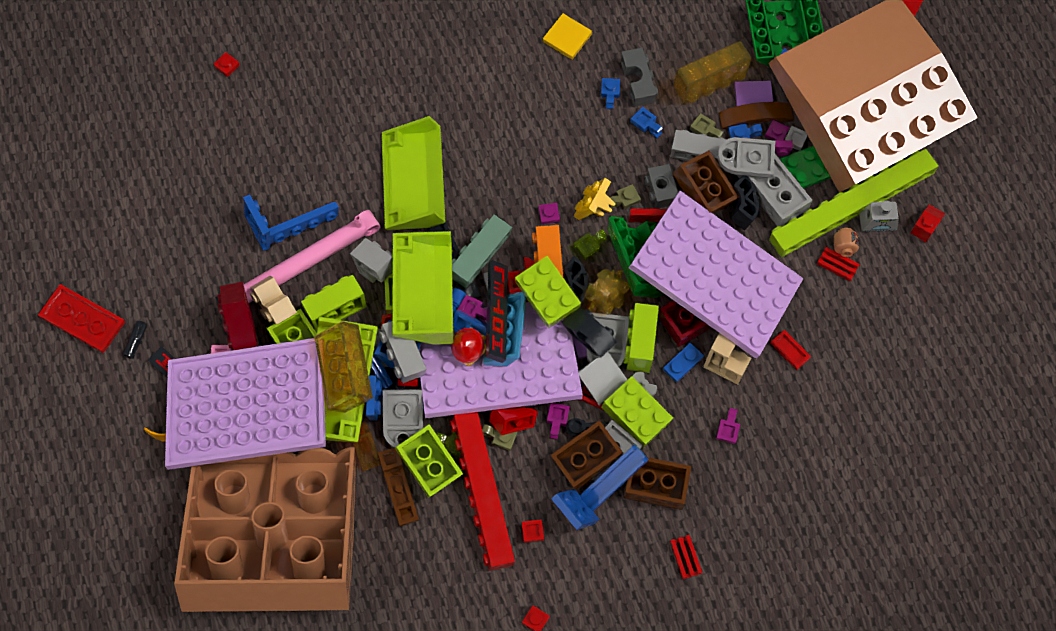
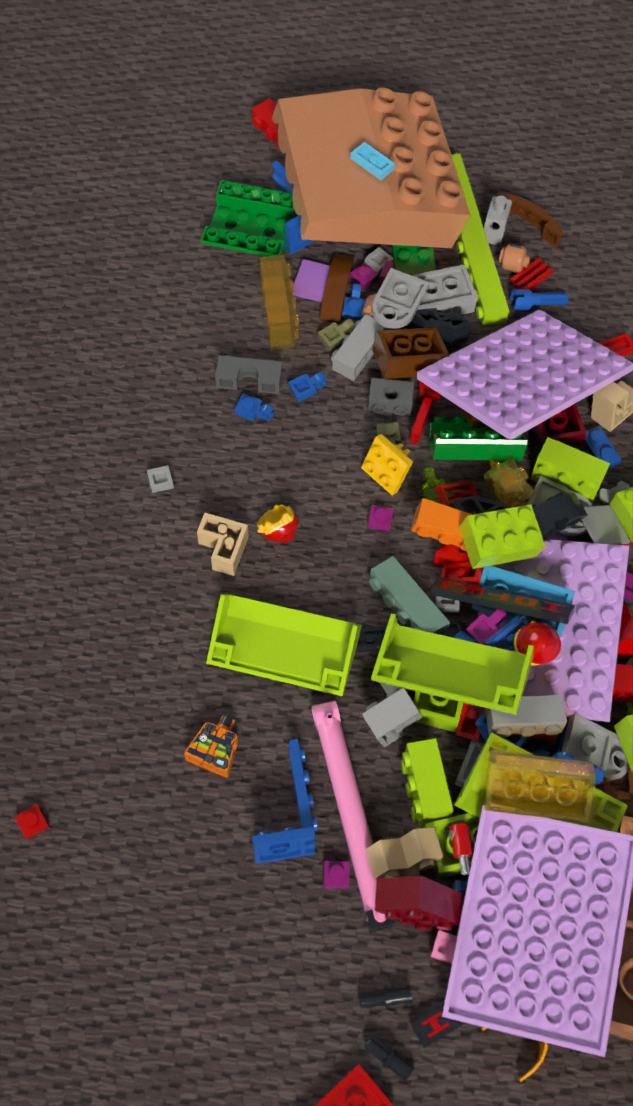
camera: 70 degrees left, 5 degrees down
(175, 325) = (385, 997): none -> black axle
(251, 268) = (336, 874): none -> magenta plate
(289, 334) = (461, 845): none -> red piece
(316, 157) = (214, 747): none -> torso
(480, 111) = (226, 538): none -> tan brick
(510, 140) = (279, 524): none -> yellow hair
(519, 48) = (160, 479): none -> light grey plate
(567, 36) = (164, 427): yellow tile -> none
(584, 243) = (441, 489): none -> red tile
(809, 266) = (525, 299): none -> blue piece
(859, 83) = (372, 161): none -> medium azure plate
(905, 226) = (536, 216): none -> reddish brown slope
(927, 223) = (514, 183): red slope -> none

